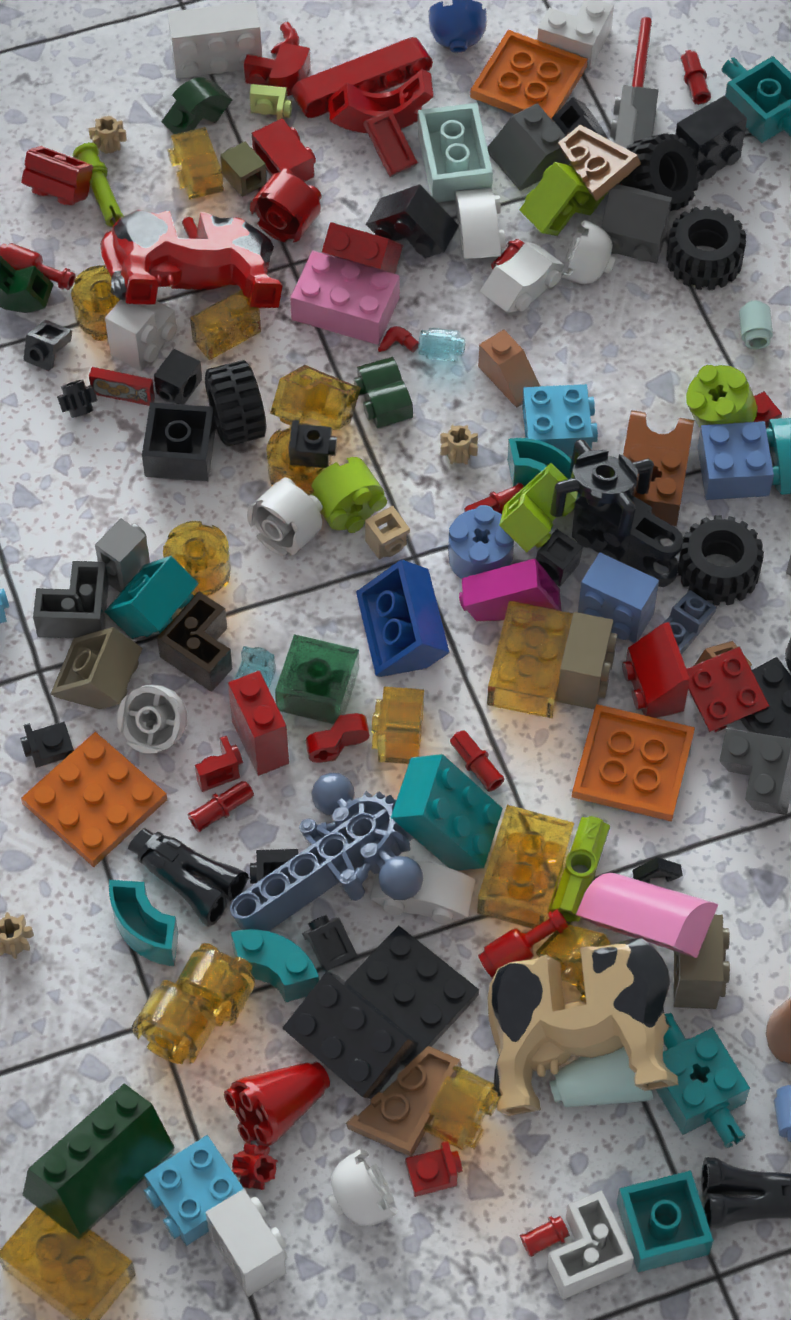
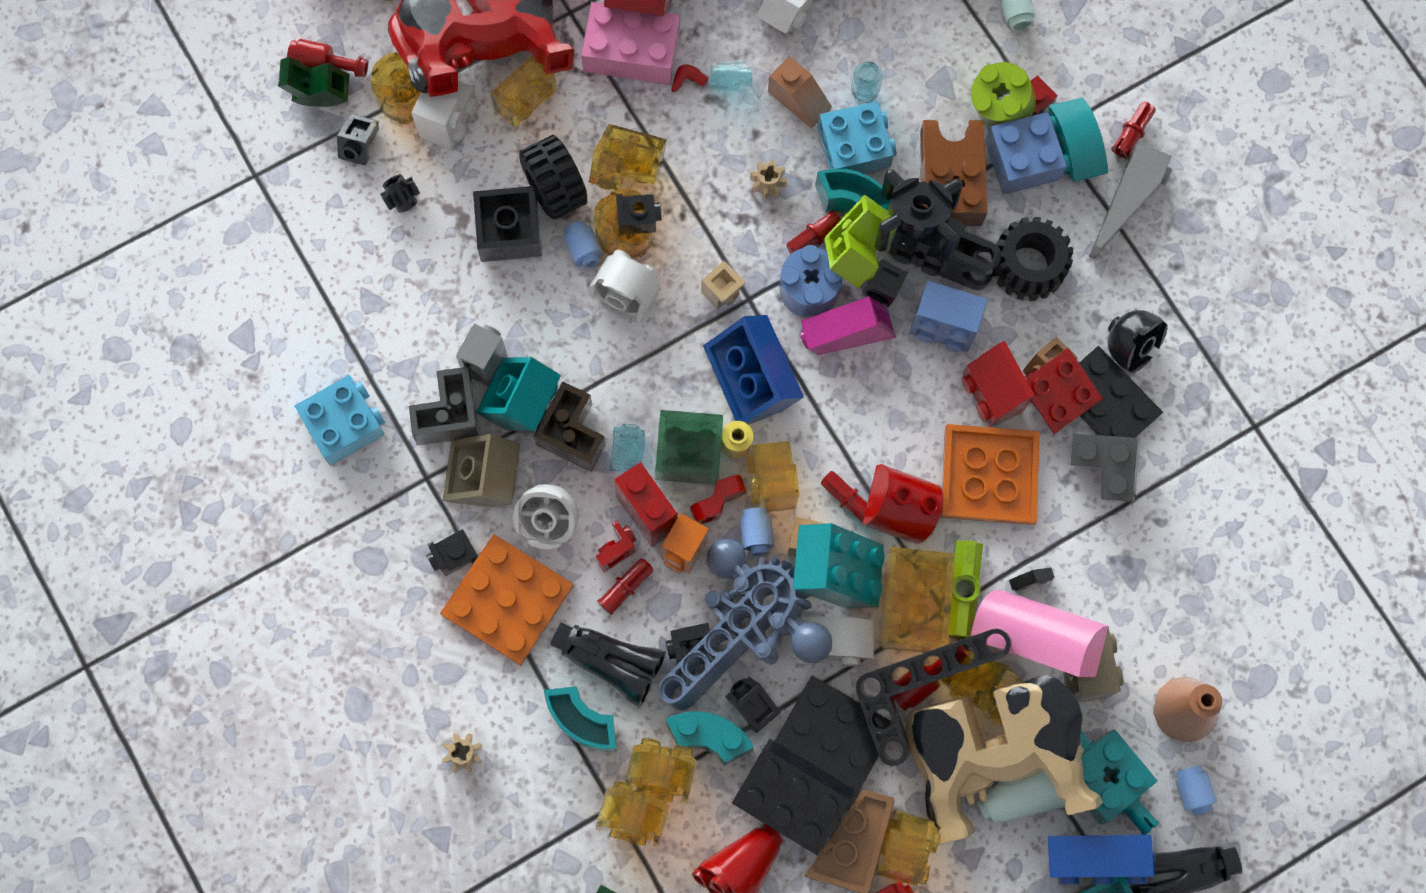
camera: 15 degrees left, 15 degrees up
(122, 386) = (439, 172): tile -> none
(177, 377) = (490, 154): black brick -> none
(202, 553) = (557, 328): clear yellow brick -> none
(252, 474) = (582, 244): none -> light blue brick
(290, 769) = (684, 544): none -> orange brick
(348, 494) = (678, 253): lime brick -> none
(368, 681) = (732, 447): none -> light yellow brick
(371, 772) = (757, 531): none -> light blue brick
(384, 392) = (687, 136): dark green brick -> none
(510, 936) = (920, 677): none -> black beam
(529, 659) = (879, 389): clear yellow brick -> none
(530, 773) = (903, 505): none -> red brick
(581, 366) = (866, 81): none -> clear light blue brick
(586, 661) = (931, 385): dark tan brick -> none
(671, 1145) = (1102, 858): none -> blue slope
(689, 618) = (1008, 322): sand blue slope -> none

